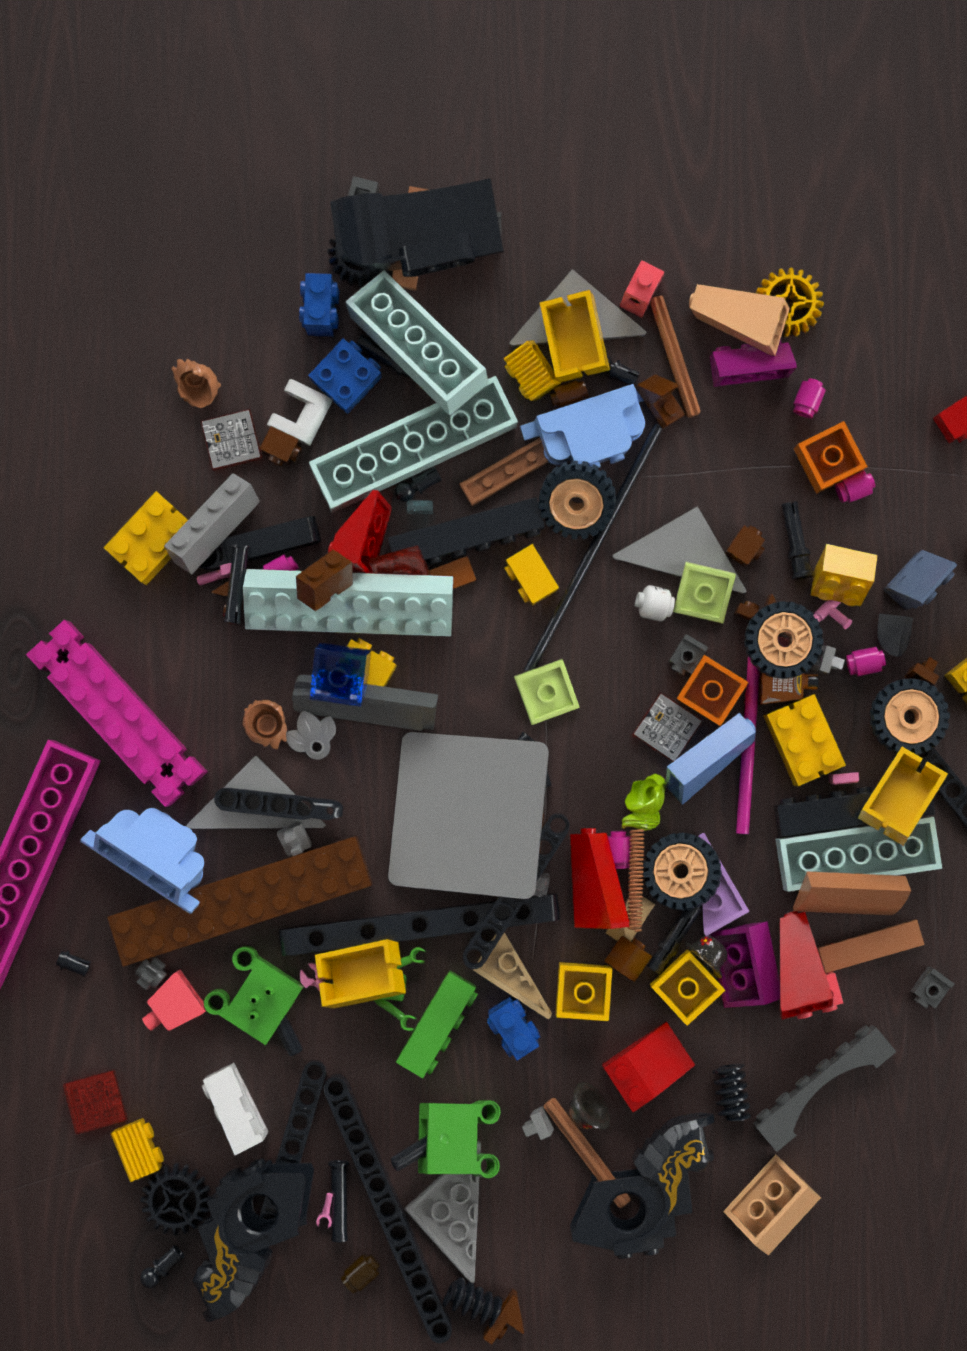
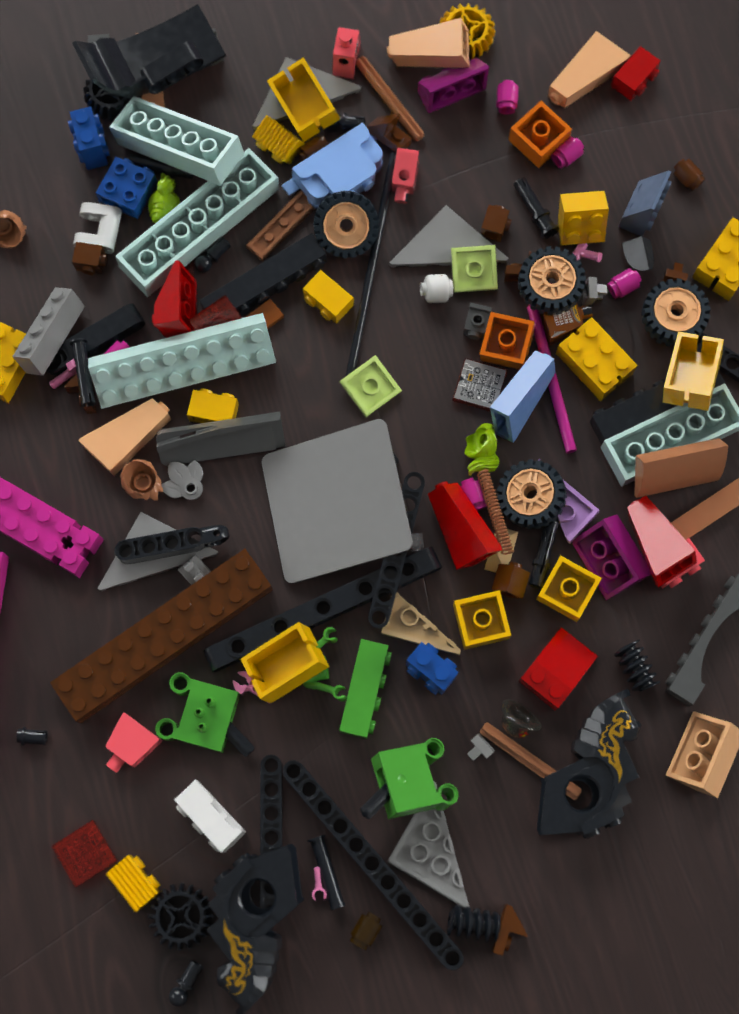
camera: 15 degrees left, 10 degrees down
(151, 973) = (102, 722): dark grey gear -> none
(152, 851) = (73, 614): light blue brick -> none
(231, 439) = (47, 266): tile -> none
(259, 667) = (126, 435): none -> light nougat slope
(323, 579) = (153, 338): reddish brown brick -> none
(340, 674) = (191, 415): clear blue slope -> none
(383, 404) = (163, 199): none -> lime hair
(419, 507) = (219, 271): clear light blue tile -> none
(666, 448) = (405, 168): none -> coral torso
(710, 953) = (579, 553): clear smoke hat -> none
(843, 778) = (639, 380): bright pink tile -> none
(915, 392) = (587, 70): none -> light nougat slope

